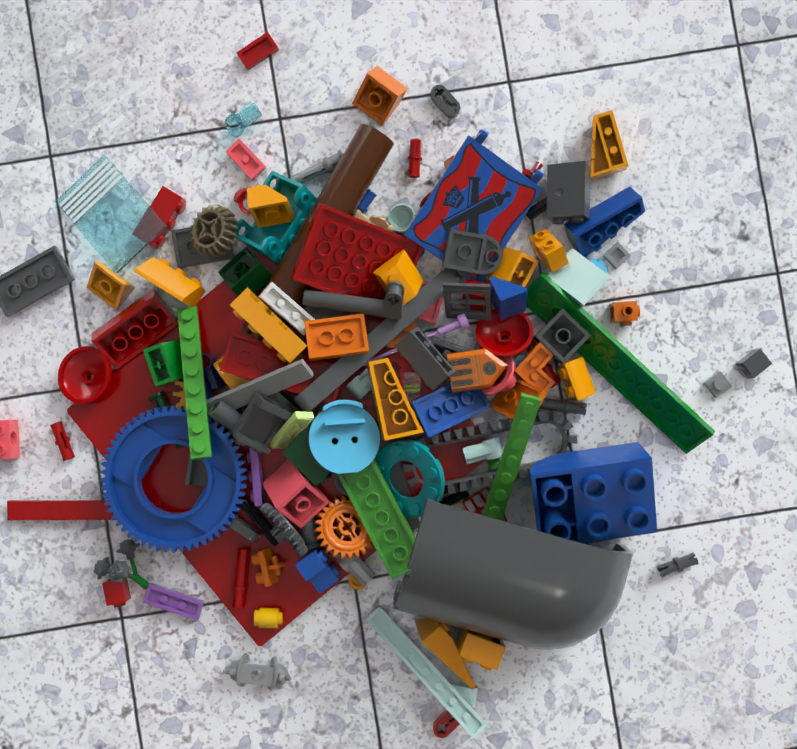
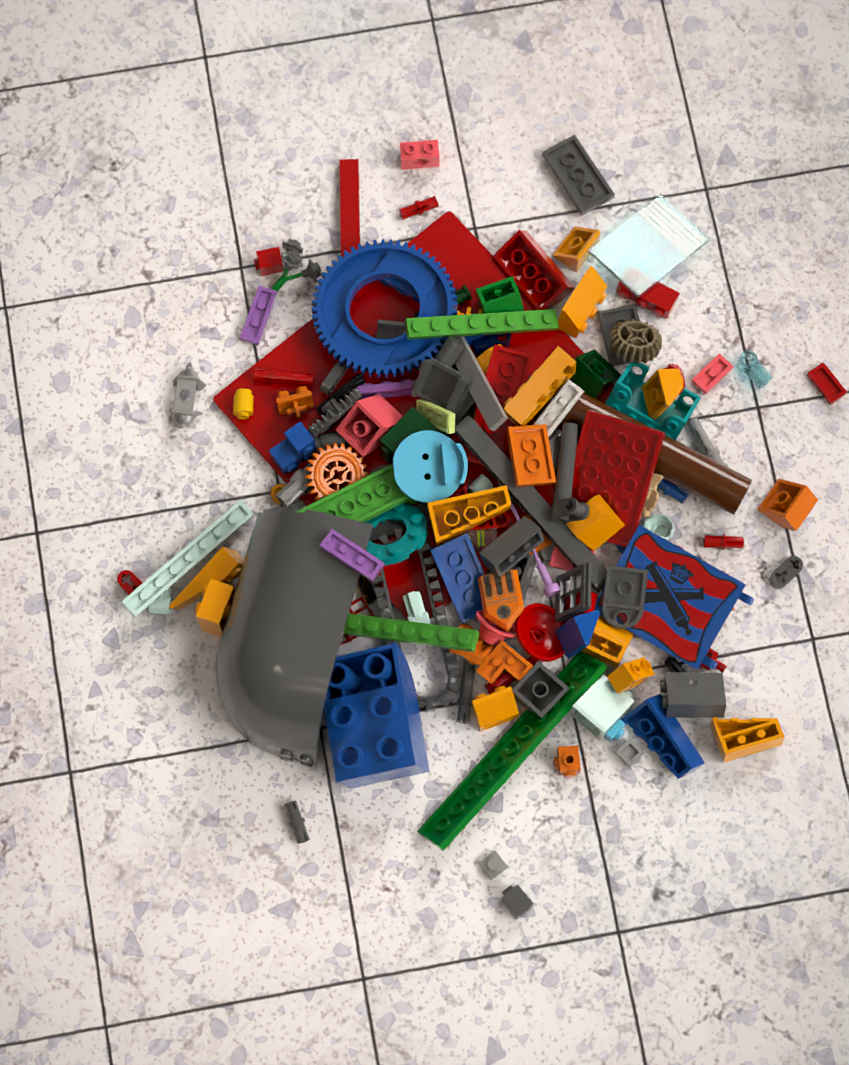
camera: 90 degrees right, 15 degrees down
(76, 373) = (485, 225): red dish -> none
(462, 522) = (352, 555): none -> medium lavender plate

